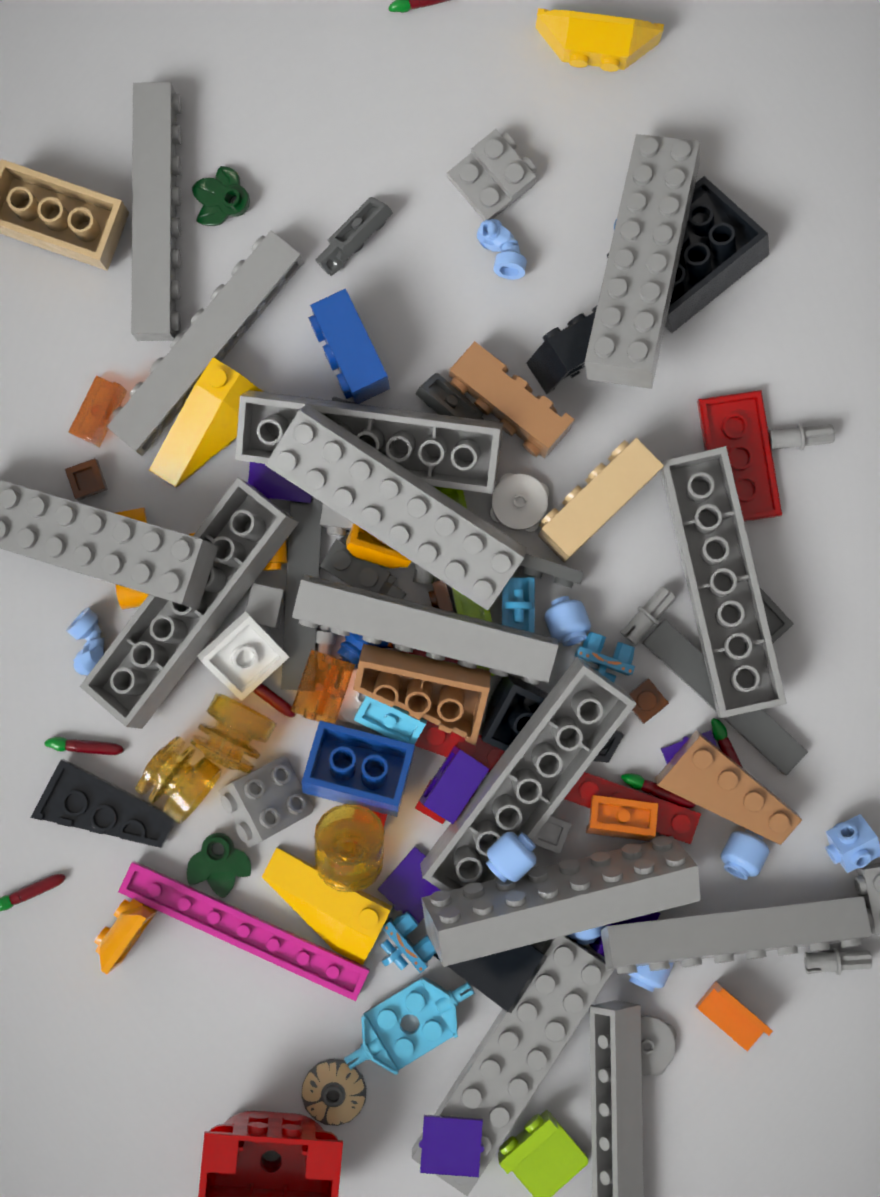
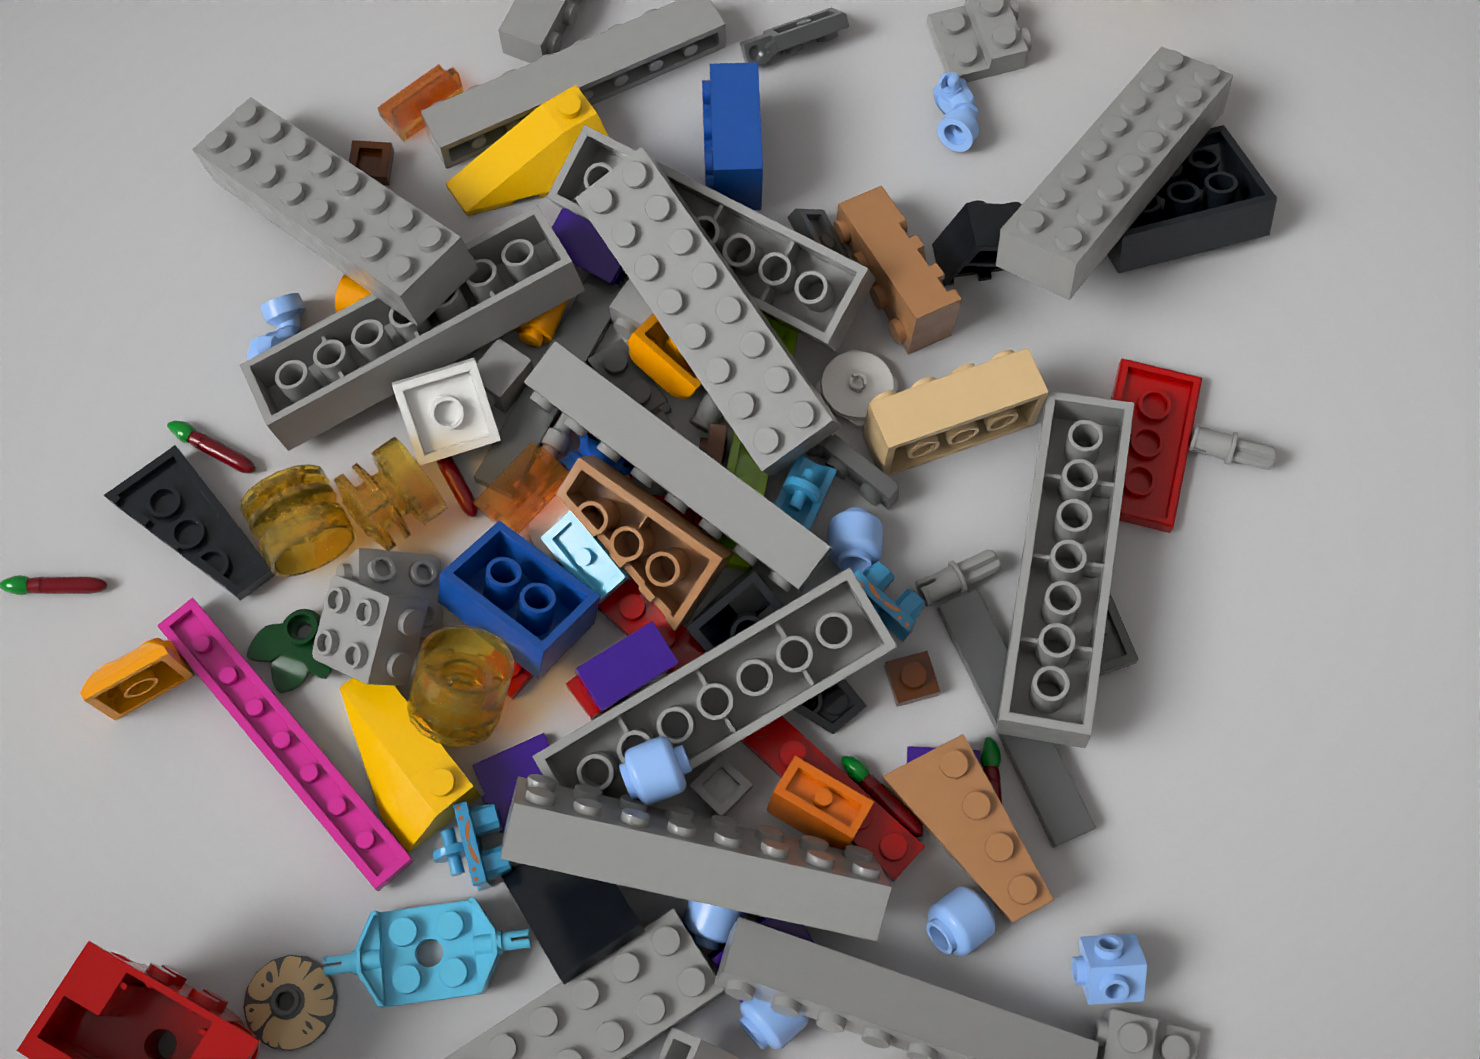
camera: 20 degrees right, 15 degrees down
(268, 839) = (369, 632): none -> light grey bracket

